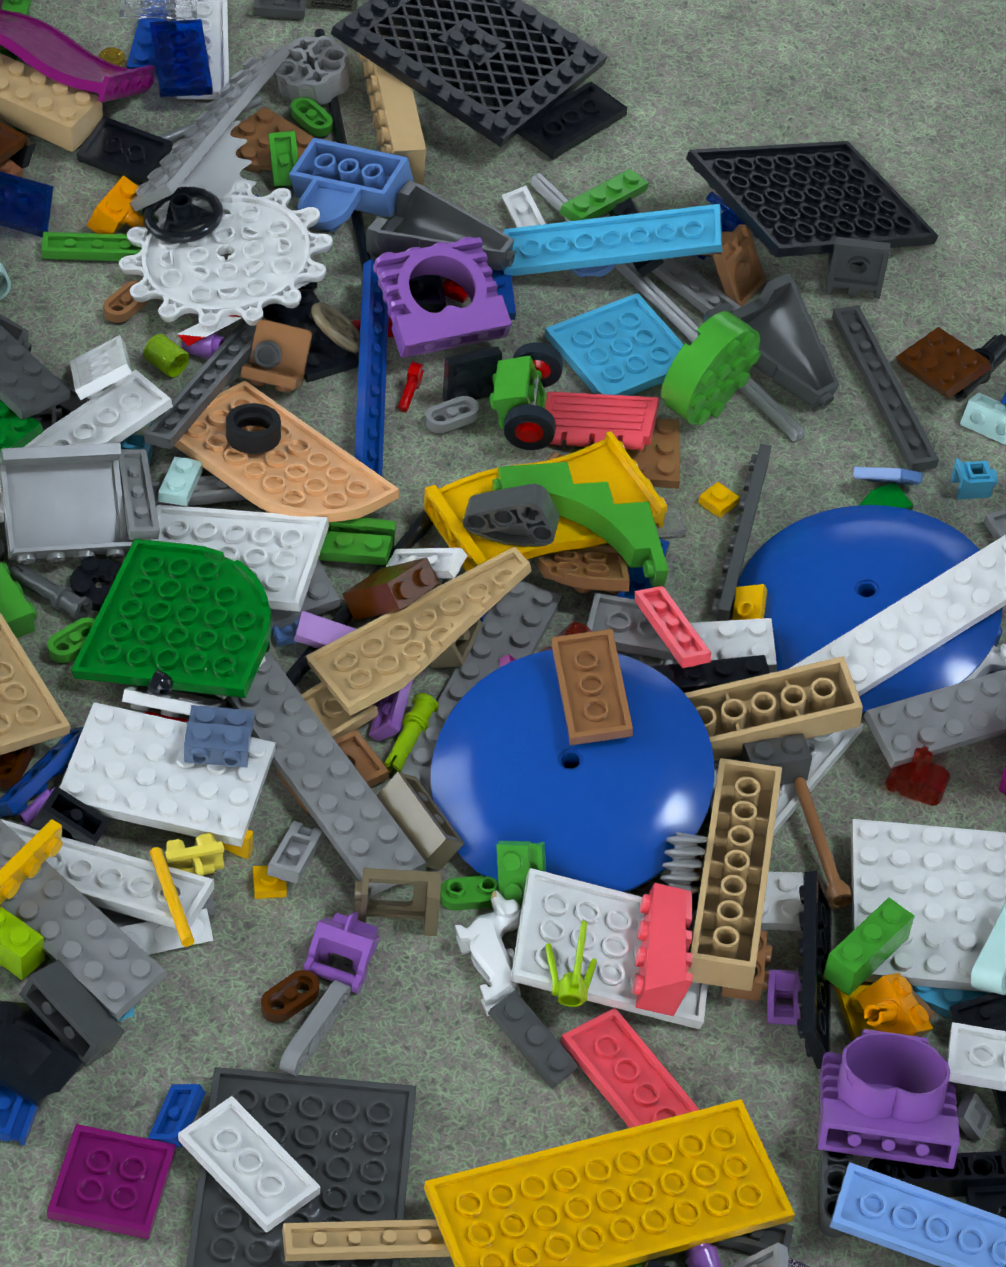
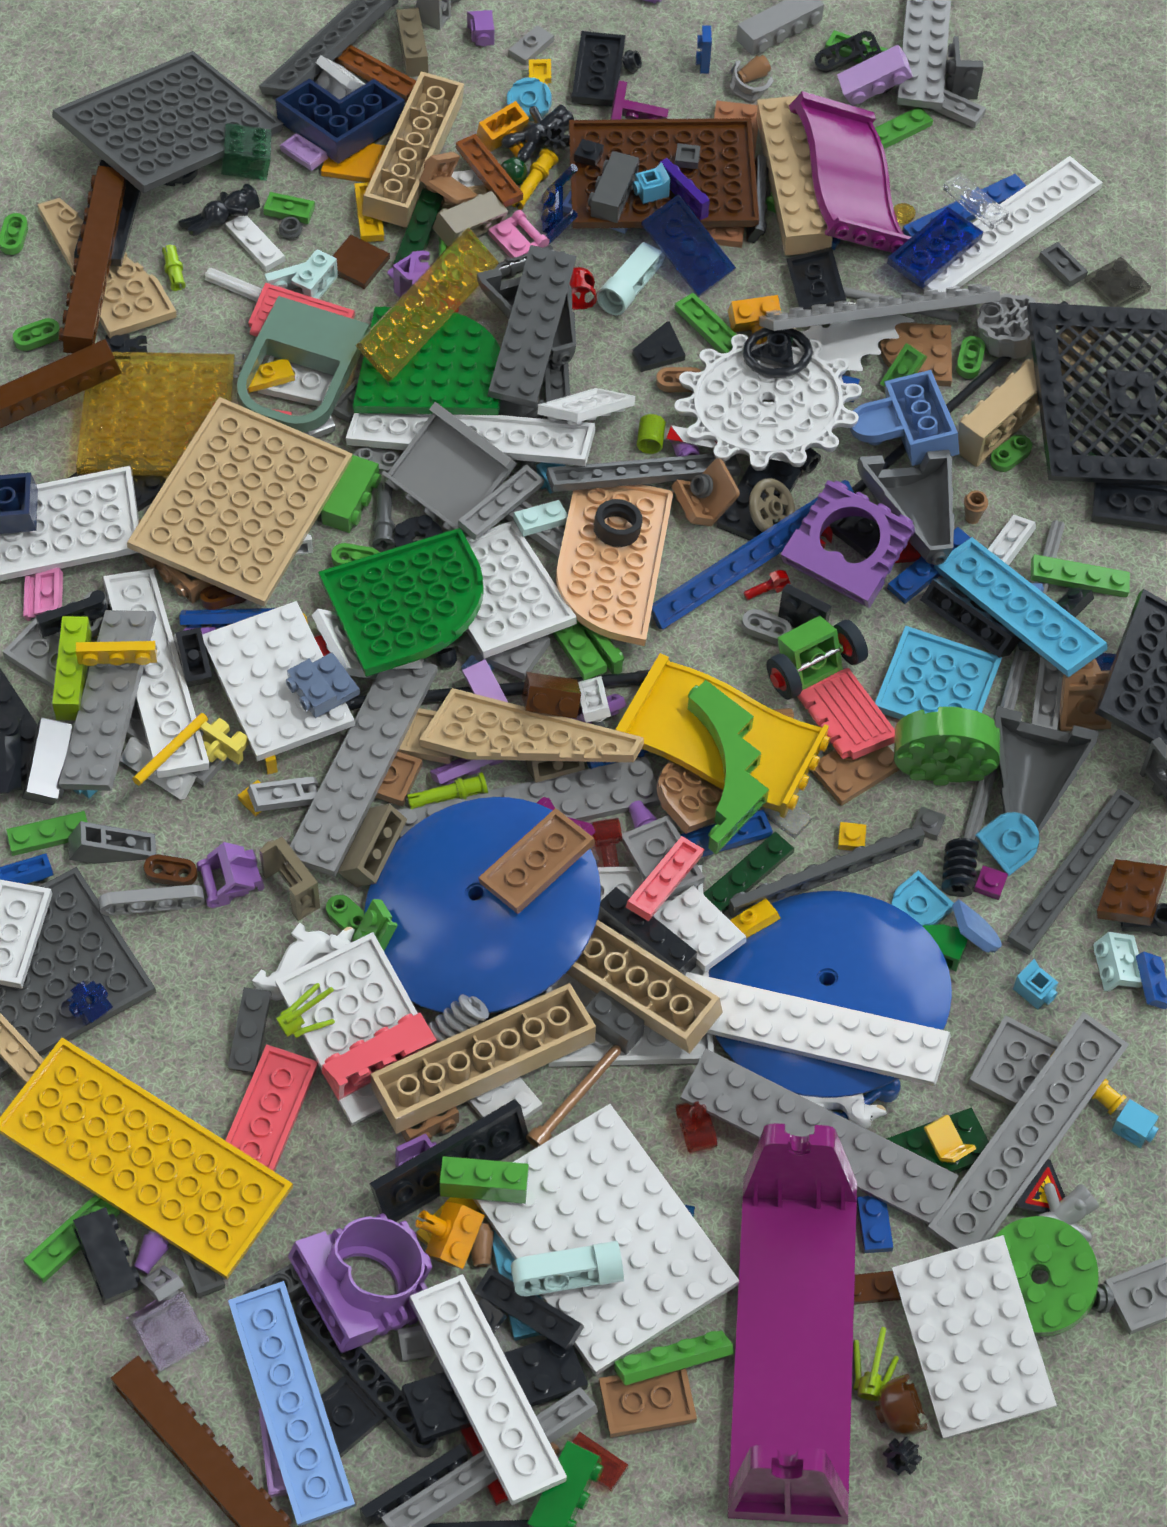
camera: 55 degrees right, 10 degrees up
(75, 295) = (659, 349): none -> black wing
(145, 1071) = (43, 833): none -> bright green plate
(160, 684) = (334, 623): black hinge -> none
(212, 1026) = (109, 844): none -> dark grey slope
(398, 1140) = (98, 1001): none -> clear blue brick
(436, 159) = (1012, 451): none -> bright green plate
(474, 203) = (975, 505): none -> medium nougat cone
(513, 516) = (670, 719): dark grey beam -> none
(563, 617) = (640, 814): none -> medium lavender cone
(581, 283) = (969, 617): none -> black brick
(690, 581) = (749, 871): none -> dark green plate
(749, 443) = (930, 822): none -> flat silver plate
(817, 449) = (959, 867): none -> black piece
(822, 495) = (922, 900): none -> medium azure tile
(827, 400) = (1010, 840): none -> medium azure tile
(845, 444) = (990, 882): none -> magenta plate

